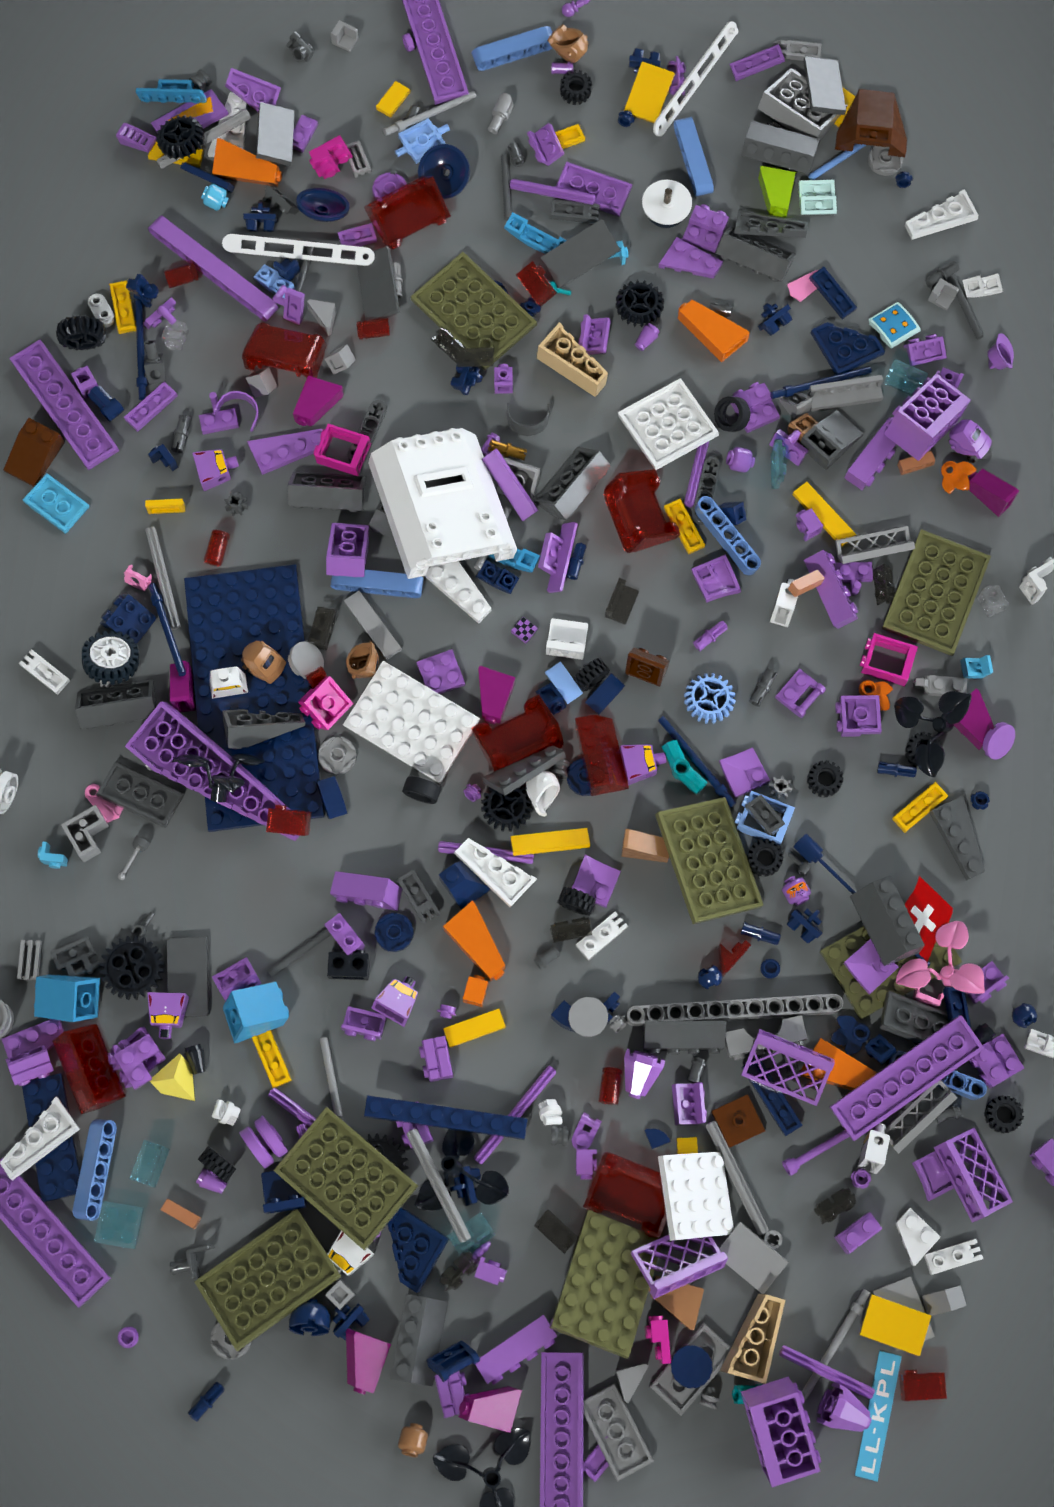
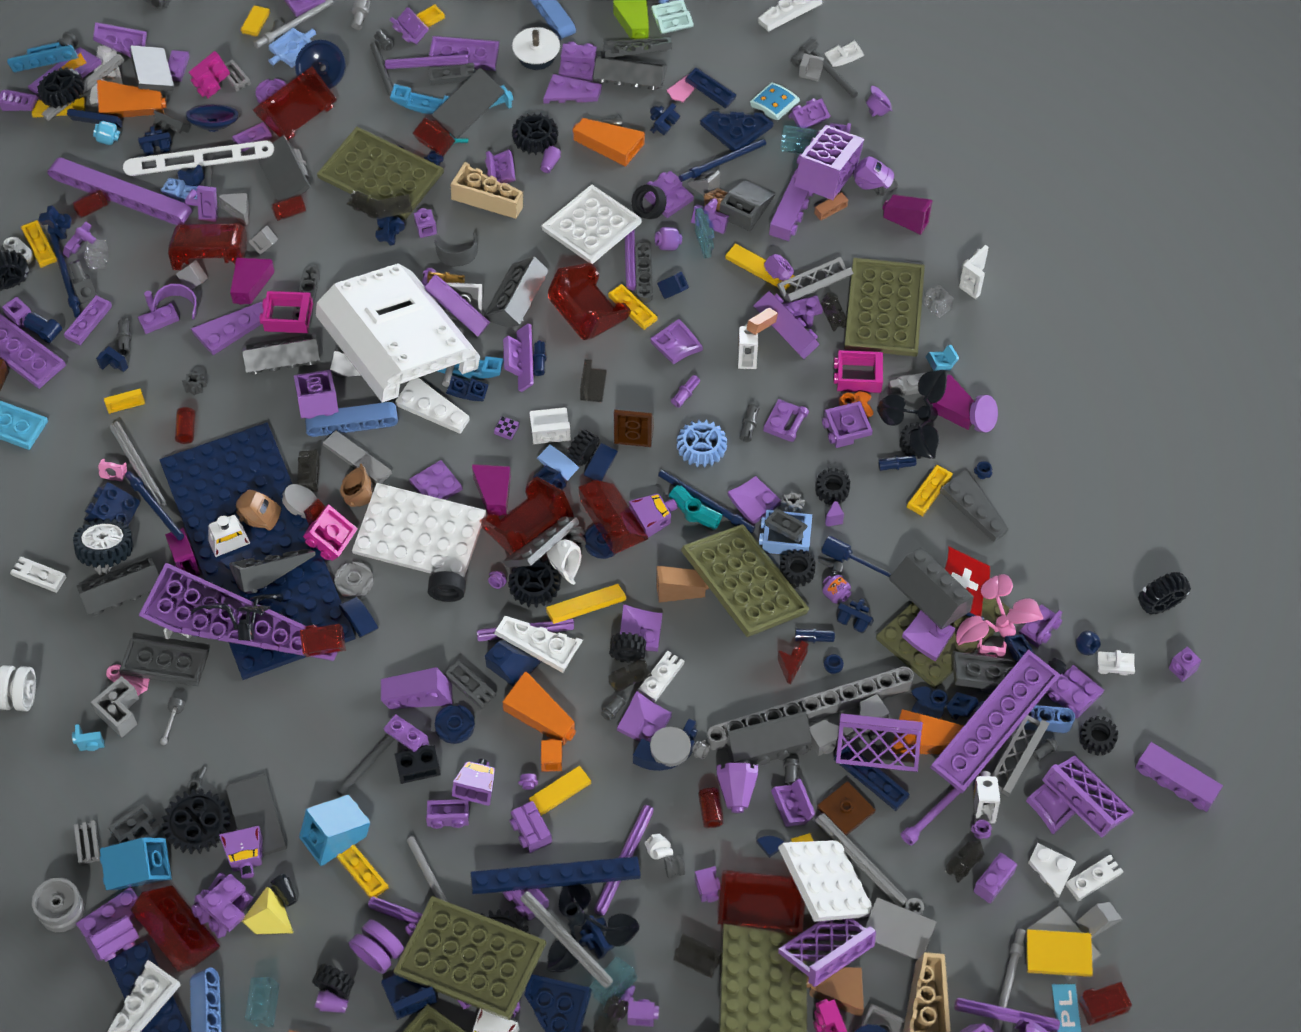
camera: 15 degrees left, 15 degrees down
(213, 467) = (163, 357): medium lavender torso -> none
(225, 1112) = (330, 933): white piece -> none
(236, 977) = (307, 798): medium lavender bracket -> none
(572, 978) = (643, 718): none -> medium lavender plate
(582, 1139) = (697, 862): medium lavender plate -> none
(710, 977) = (779, 683): dark blue piece -> none
(727, 527) = (681, 308): medium blue beam -> none
(808, 524) = (748, 277): medium lavender brick -> none
(817, 811) = (835, 515): none -> medium lavender slope
(841, 524) = (778, 267): none -> medium lavender rock
(846, 393) = (749, 165): light grey fence -> none
(959, 476) = (873, 208): orange plate -> none

